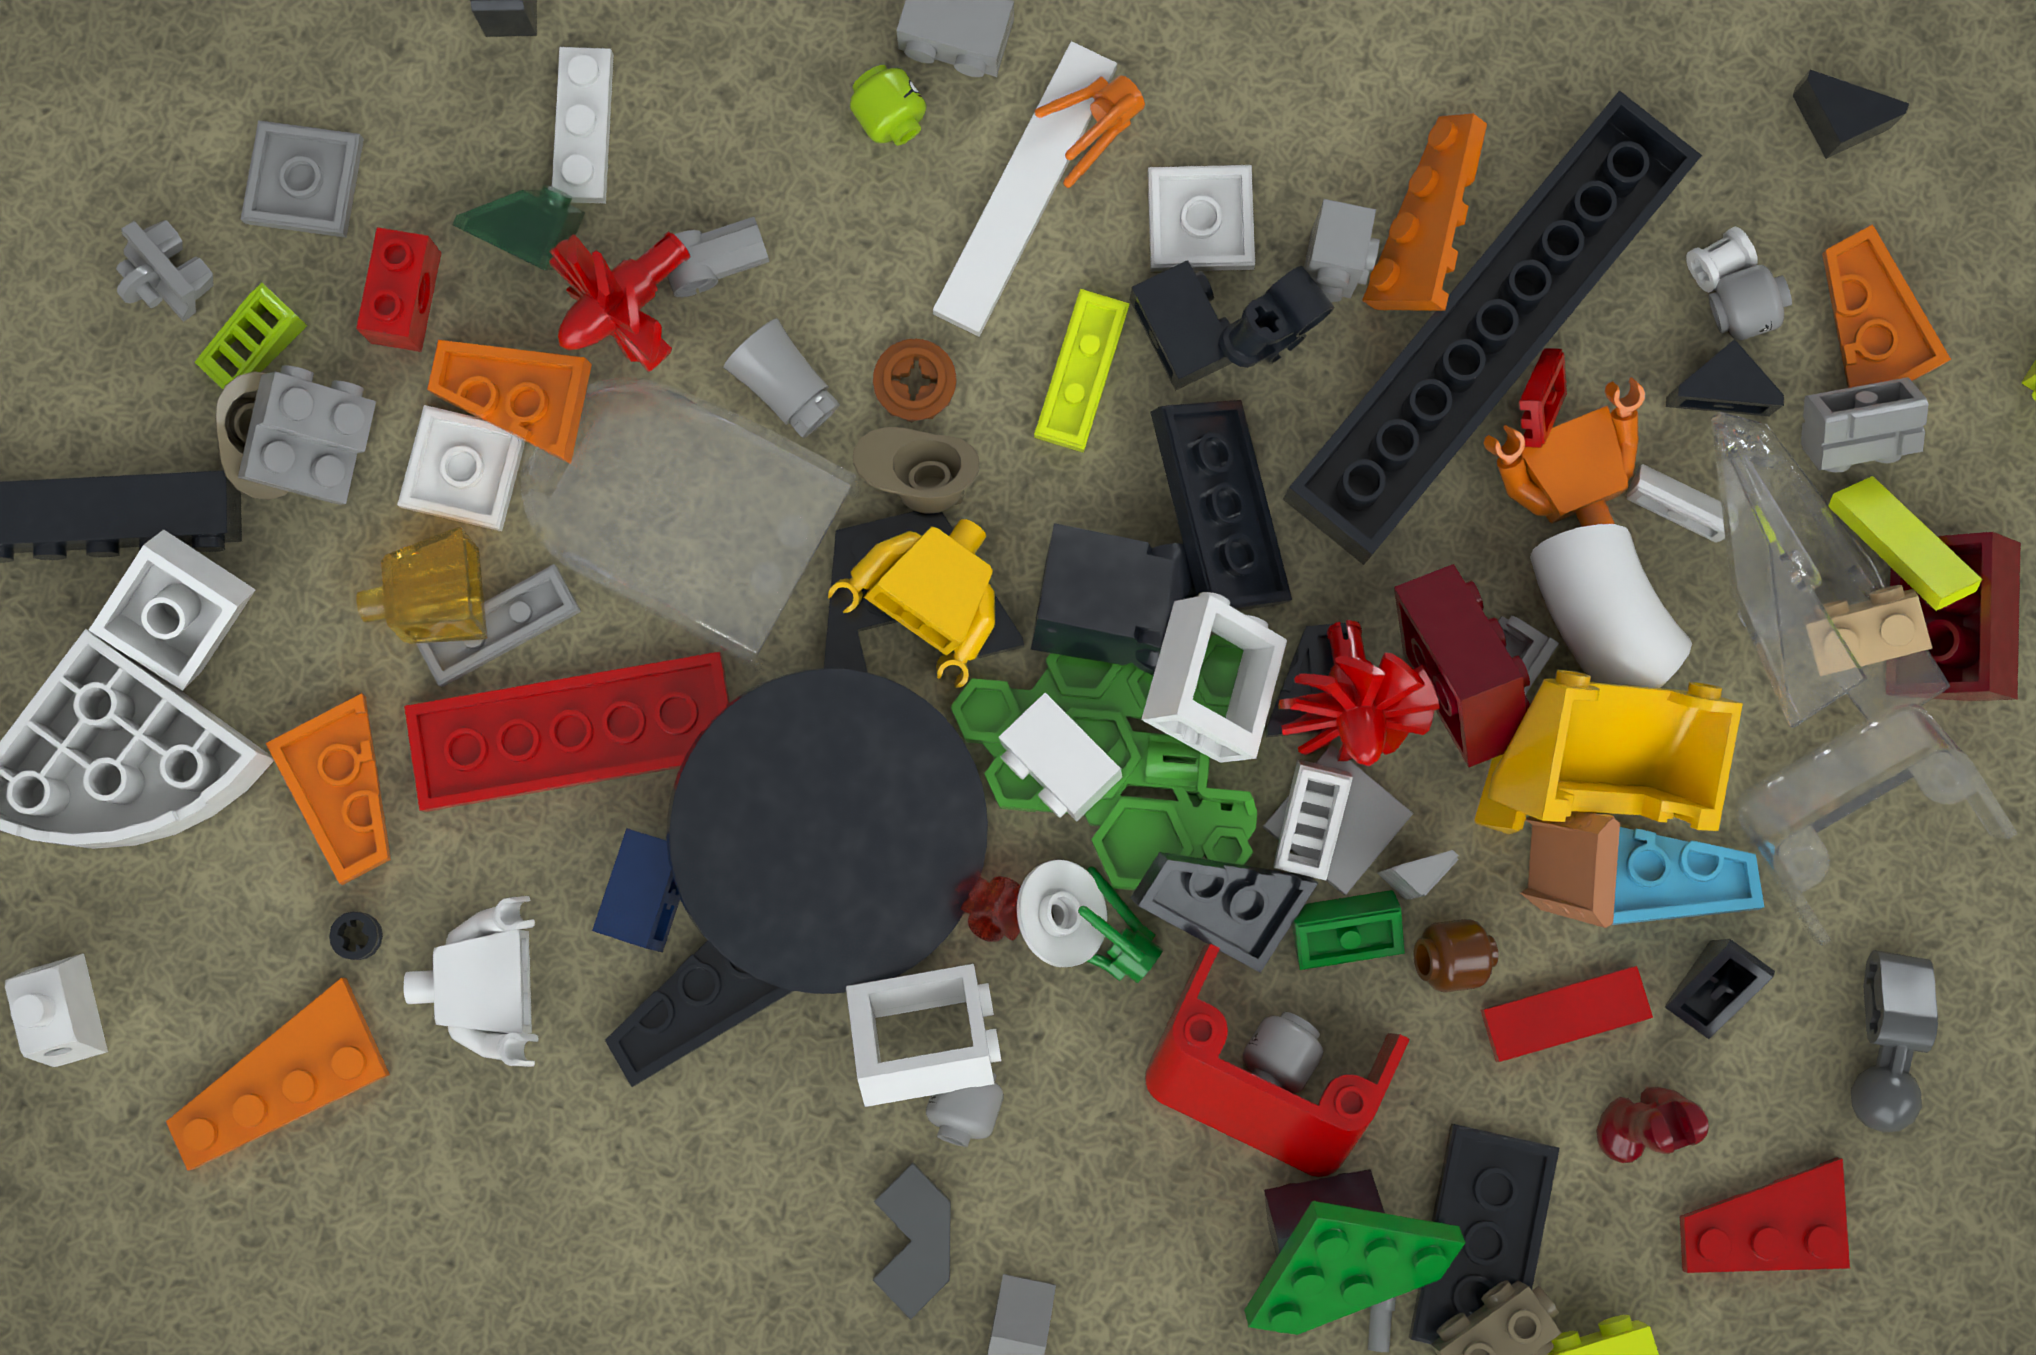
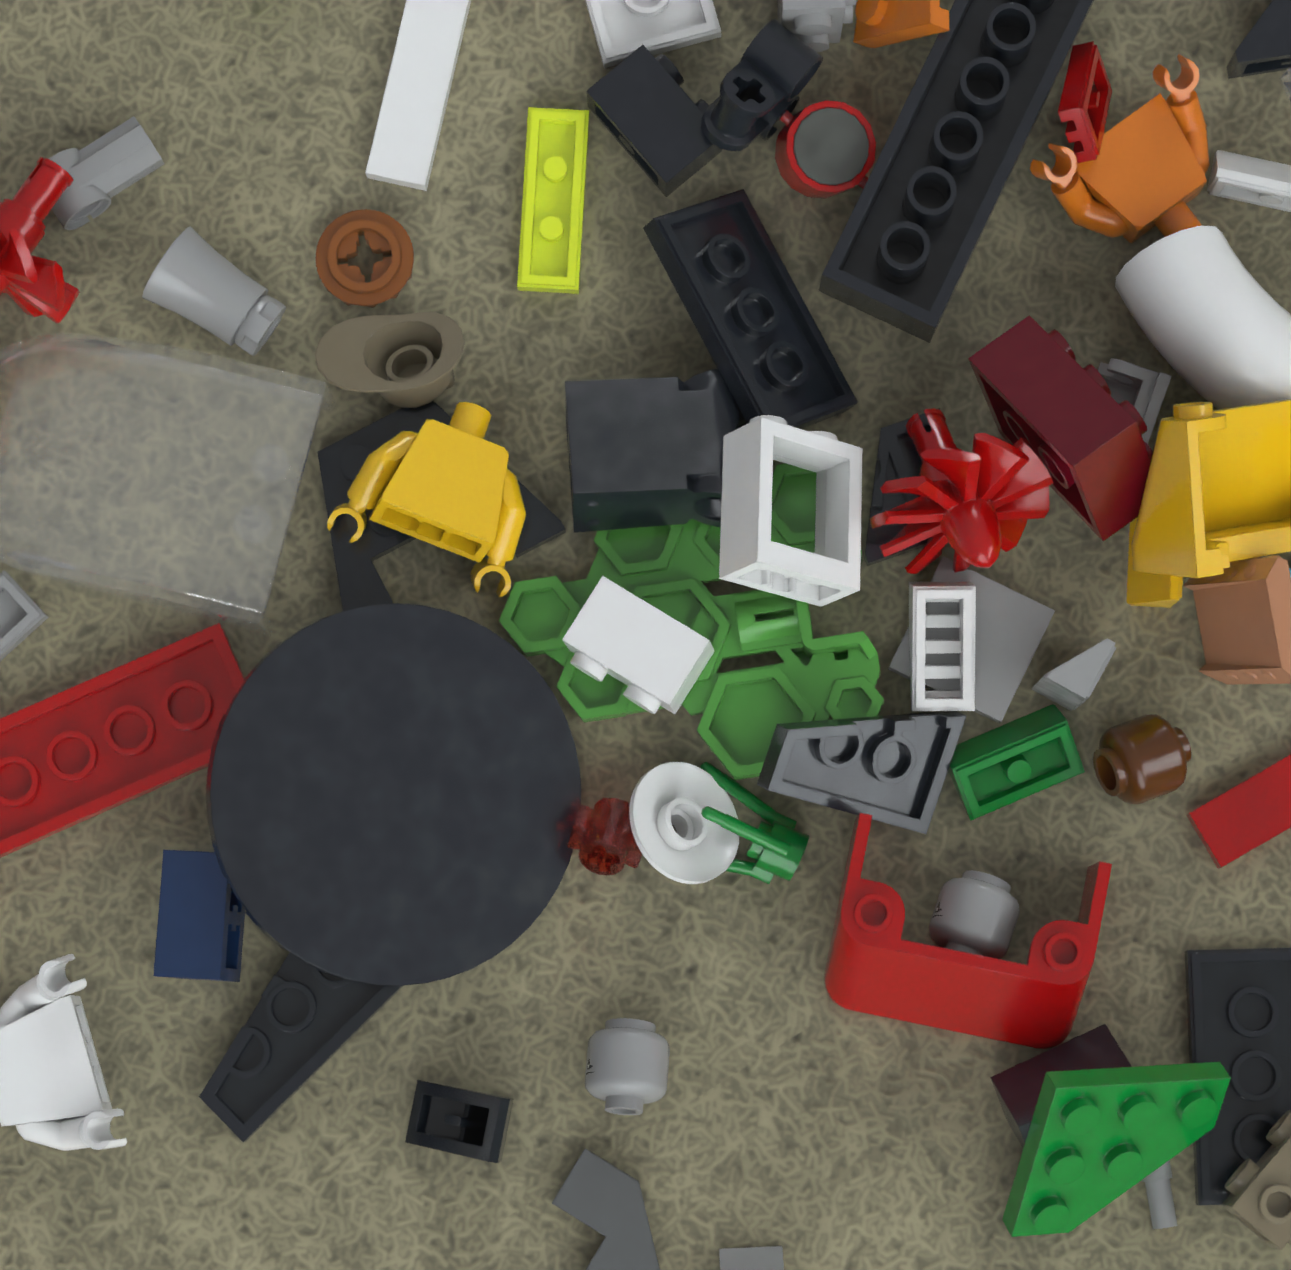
camera: 10 degrees left, 0 degrees up
(814, 1114) = (459, 1121): none -> black slope
(925, 1073) = (574, 1040): white window -> none
(1317, 383) = (825, 149): none -> piece

